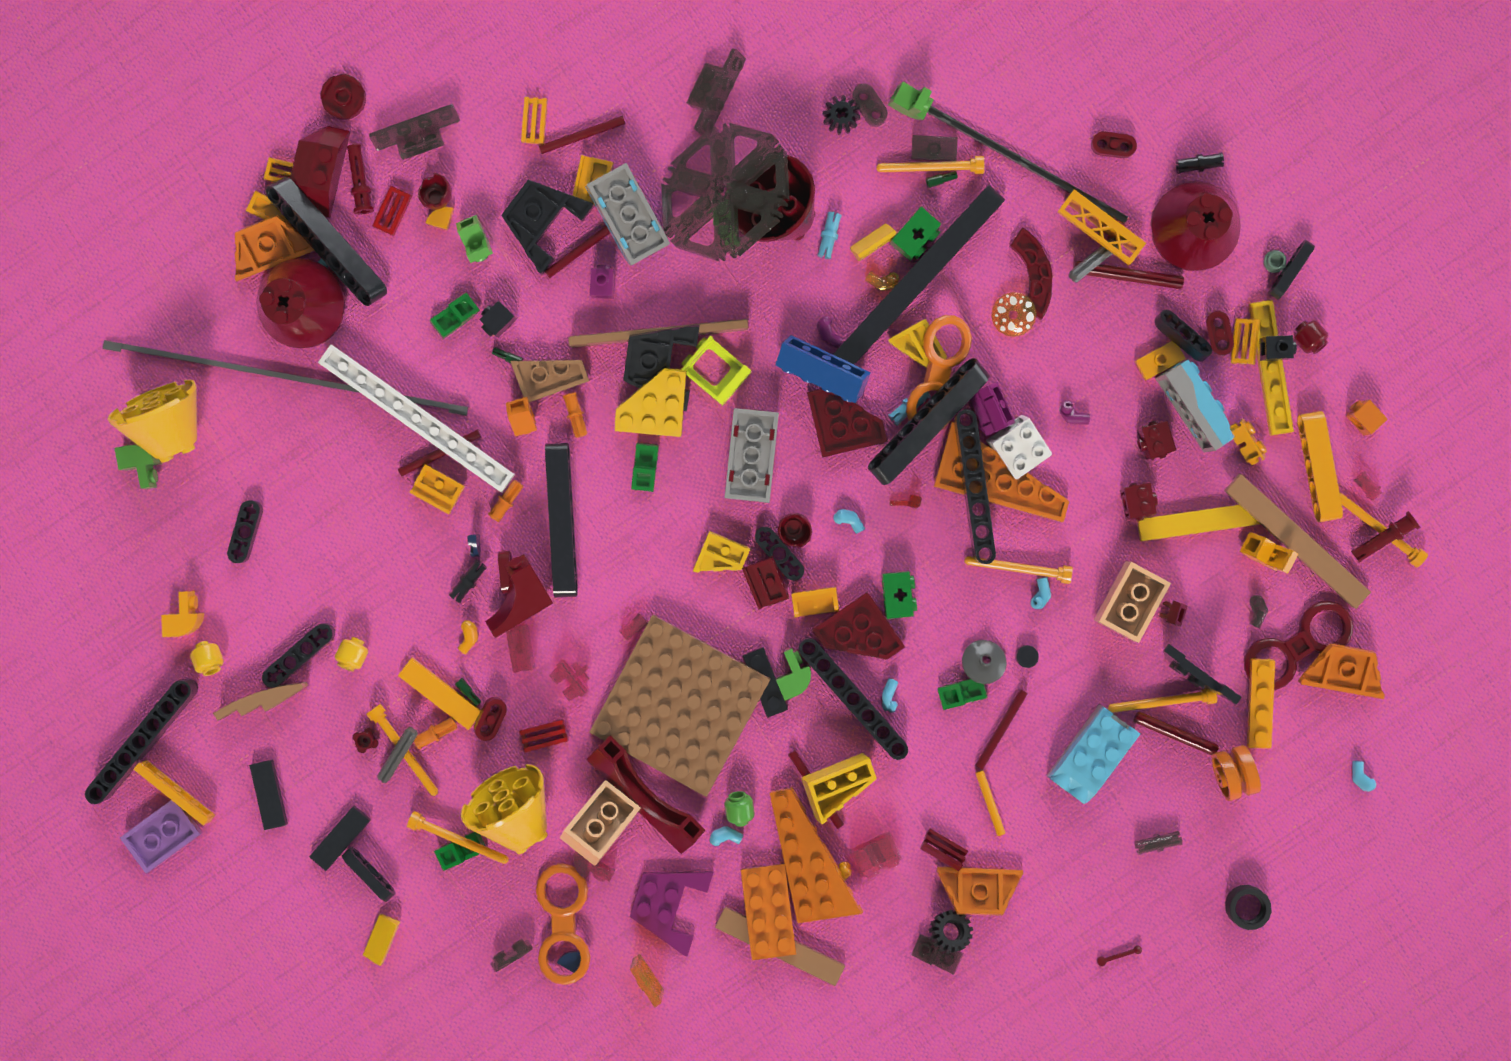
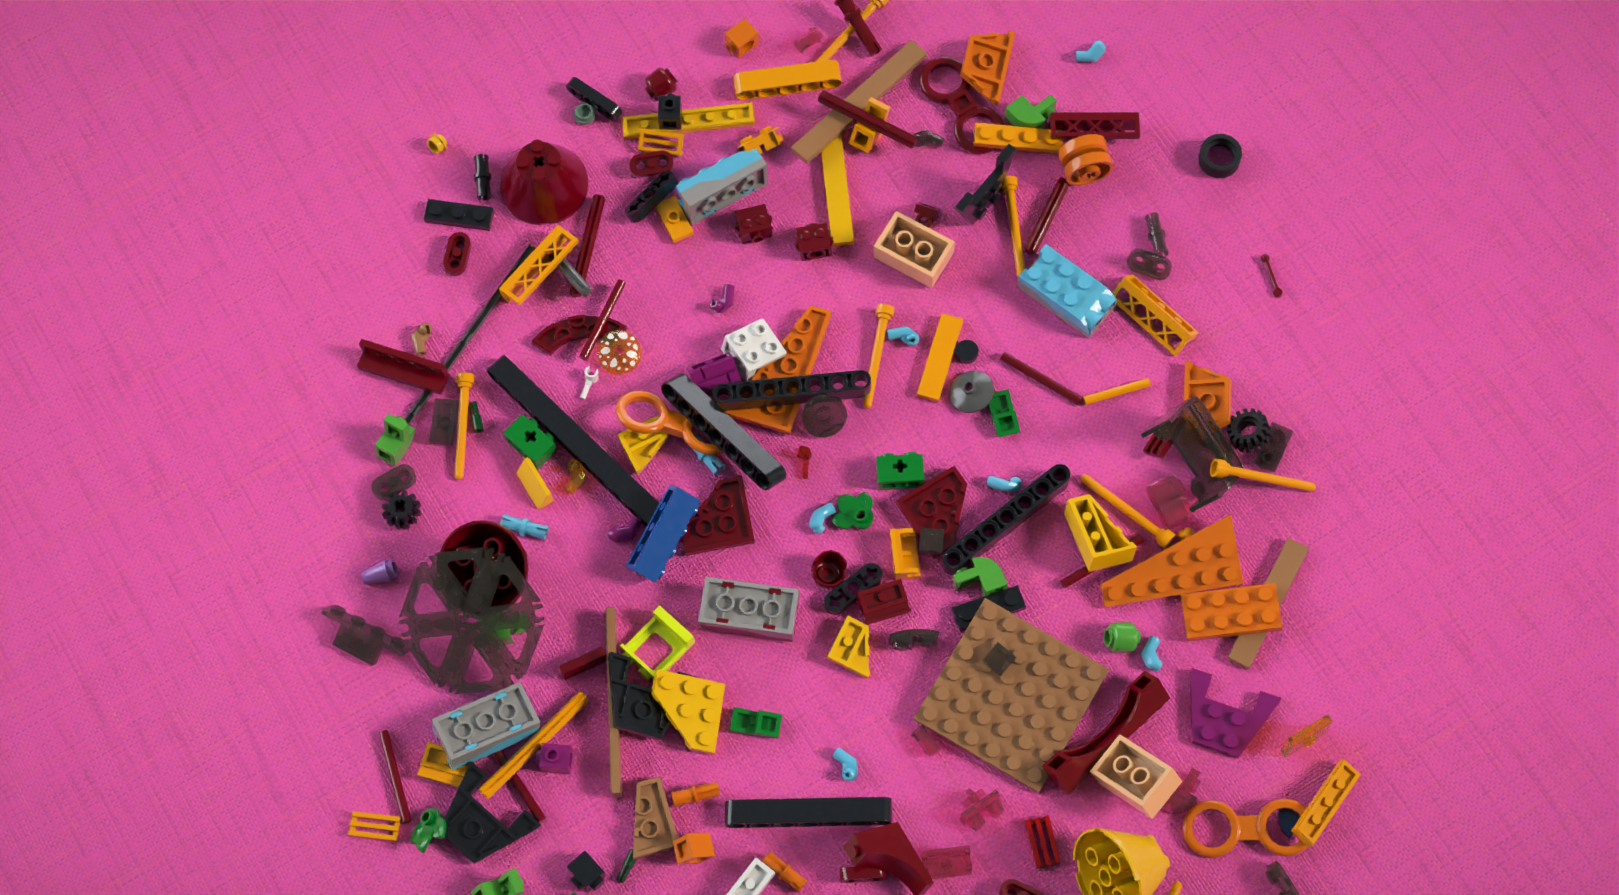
camera: 85 degrees left, 20 degrees down
(530, 170) = (431, 826): none -> green plate
(587, 996) = (1326, 802): none -> light orange tile
(608, 556) = (849, 764): none -> medium azure arm
(614, 261) = (533, 745): none -> light orange axle
(695, 302) = (583, 663): none -> dark red tile
(708, 694) = (999, 659): none -> clear smoke tile
(729, 605) = (904, 639): none -> clear smoke slope
(778, 103) = (381, 572): none -> medium lavender cone
(826, 627) = (931, 541): none -> clear smoke tile
(841, 847) = (1163, 536): none -> light orange piece
(859, 549) = (851, 509): none -> green plate
(905, 906) = (1221, 469): none -> light orange piece
(926, 889) = (1199, 444): none -> clear smoke windscreen
(950, 519) = (824, 415): none -> clear smoke tile
(980, 286) = (589, 380): none -> white hand
(987, 102) = (402, 367): none -> dark red fence
(1019, 630) = (940, 357): none -> light orange tile
(1021, 115) = (419, 338): none -> medium nougat arm
(1048, 296) = (614, 296): none -> dark red bar
(1077, 845) = (1159, 309): none -> light orange fence
(1125, 835) = (1148, 266): none -> clear smoke plate
(1158, 142) = (459, 214): none -> black plate
(1236, 113) = (437, 143): none -> yellow plate
(1274, 550) = (867, 119): none -> dark red axle
(1282, 781) = (1094, 122): none -> dark red fence
(1285, 710) = (1024, 114): none -> bright green brick

